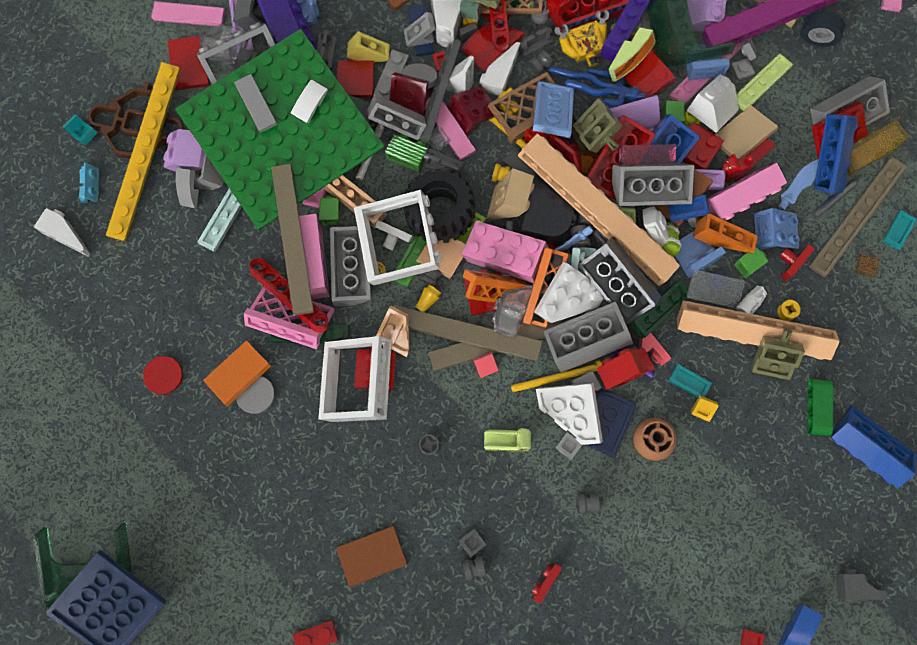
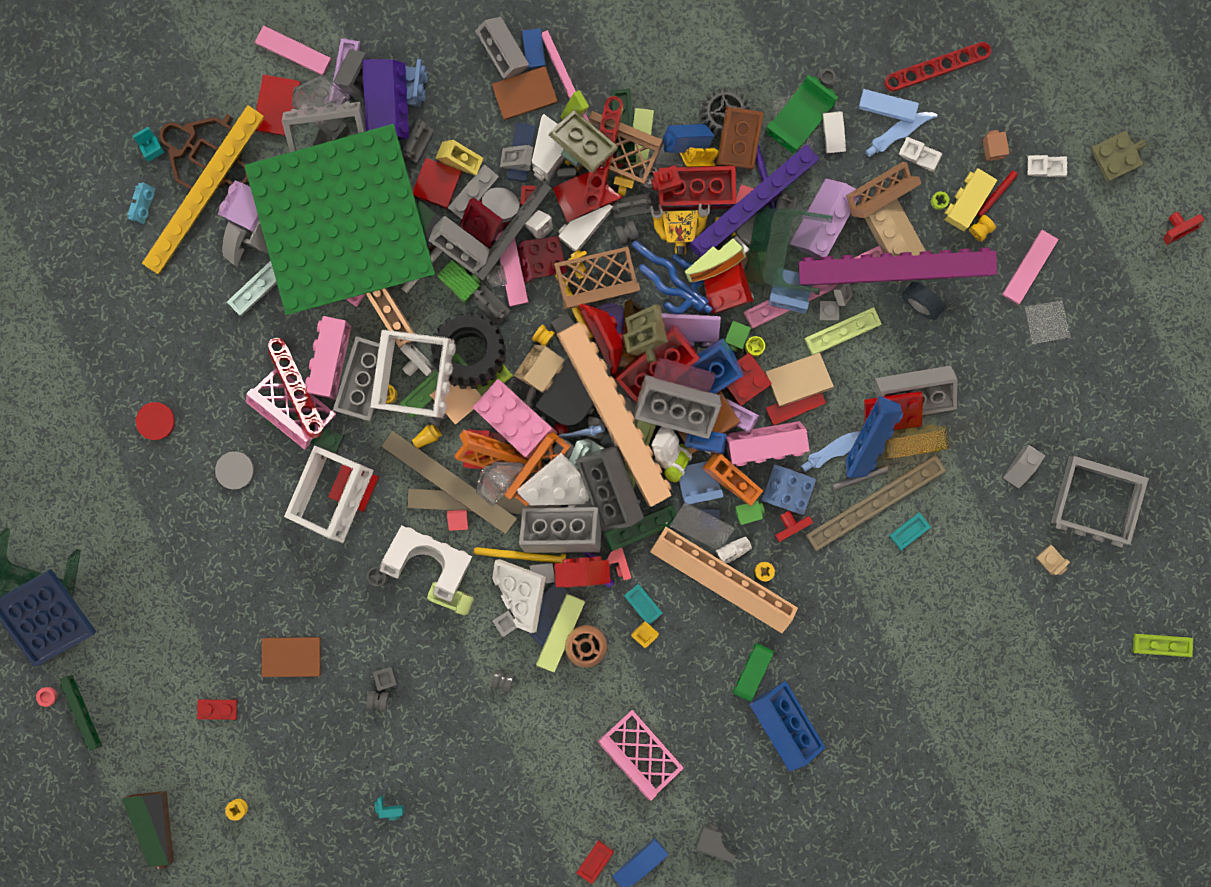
camera: 20 degrees right, 10 degrees up
(58, 228) = (100, 241): white slope -> none
(236, 373) = (223, 444): orange tile -> none
(255, 103) = (322, 189): light grey tile -> none
(292, 240) = (314, 339): dark tan tile -> none
(309, 100) = (375, 205): white slope -> none
(329, 211) = (363, 315): bright green brick -> none
(396, 328) = (383, 458): light nougat wing -> none
(494, 403) = (411, 543): none -> white arch
(521, 23) = (623, 183): none -> yellow tile
(550, 575) = (443, 731): red plate -> none
(553, 109) = (613, 294): light blue tile -> none
(623, 439) = (560, 630): none -> yellowish green tile
(715, 103) = (780, 342): white slope -> none
(736, 167) = (767, 414): red animal -> none
(745, 543) = (625, 762): none -> bright pink fence
(778, 356) = (731, 612): olive plate -> none
(867, 265) = (861, 555): clear orange tile -> none

